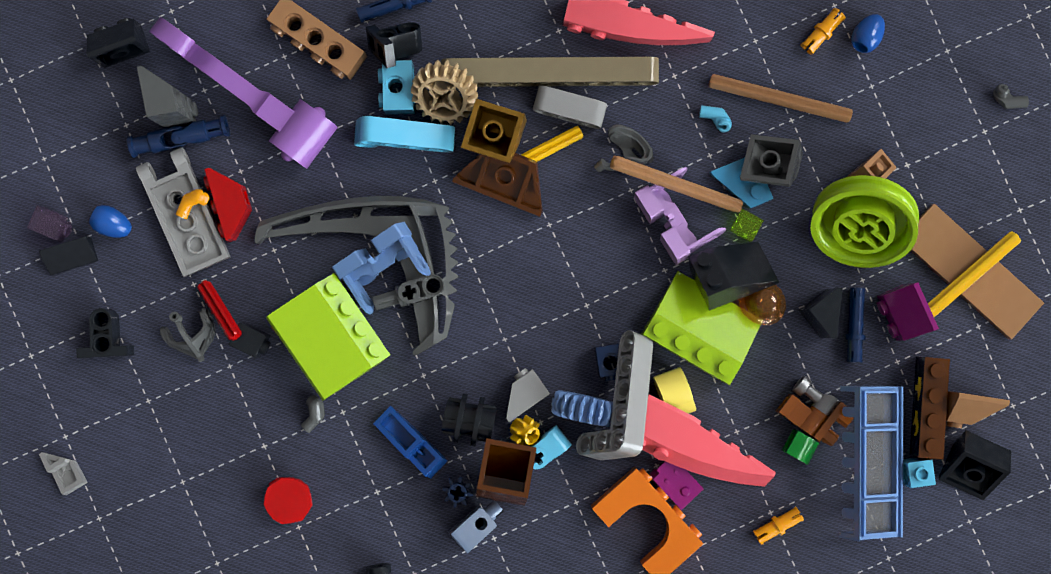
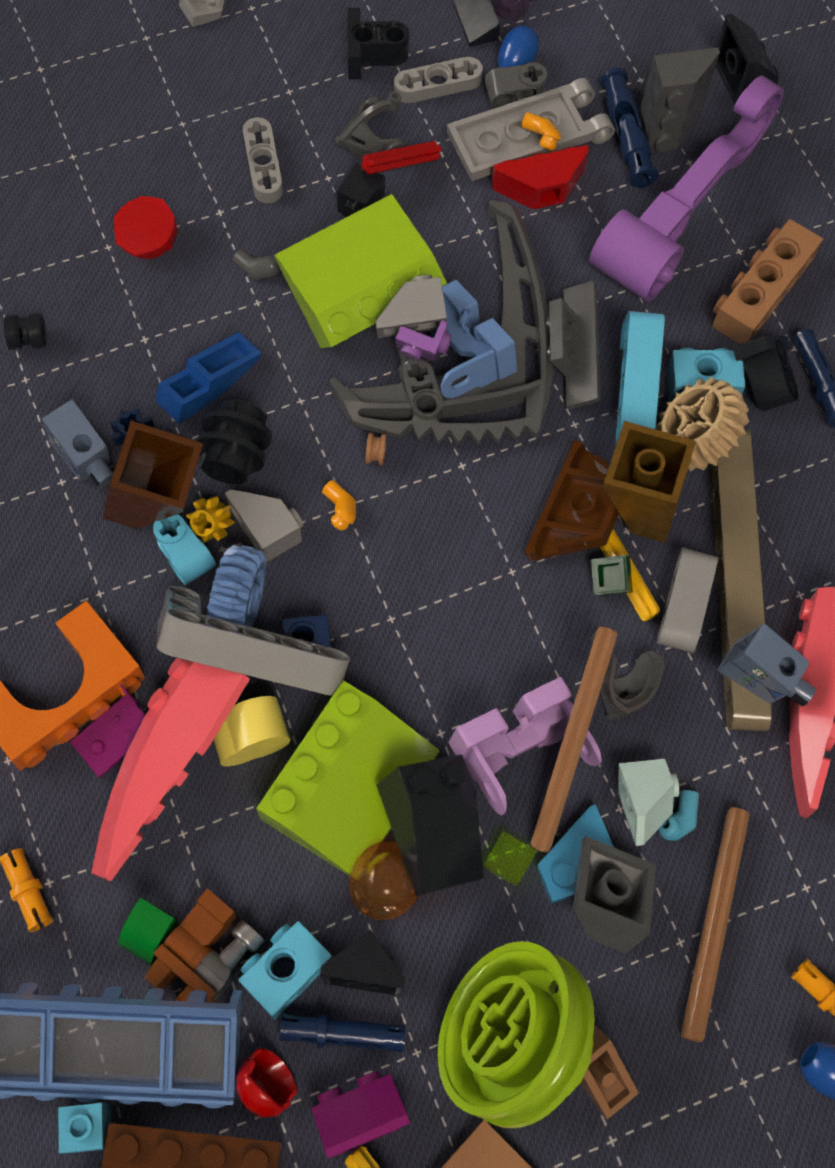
camera: 90 degrees right, 20 degrees down
(133, 303) = (446, 69): none -> light grey beam
(143, 227) = (514, 84): none -> dark grey piece
(202, 427) = (258, 171): none -> light grey beam
(365, 295) = (416, 306): none -> light grey slope
(373, 179) = (576, 343): none -> dark grey bracket
(392, 293) = (417, 345): none -> medium lavender bracket
(464, 320) = (376, 449): none -> medium nougat bush
(507, 339) = (344, 505): none -> light orange arm
(555, 157) = (611, 575): none -> tile
(628, 58) = (768, 667): none -> sand blue torso
(709, 138) = (646, 796): none -> light aqua slope
(835, 367) = (279, 993): none -> medium azure brick
(888, 368) = (265, 1083): none -> red hair

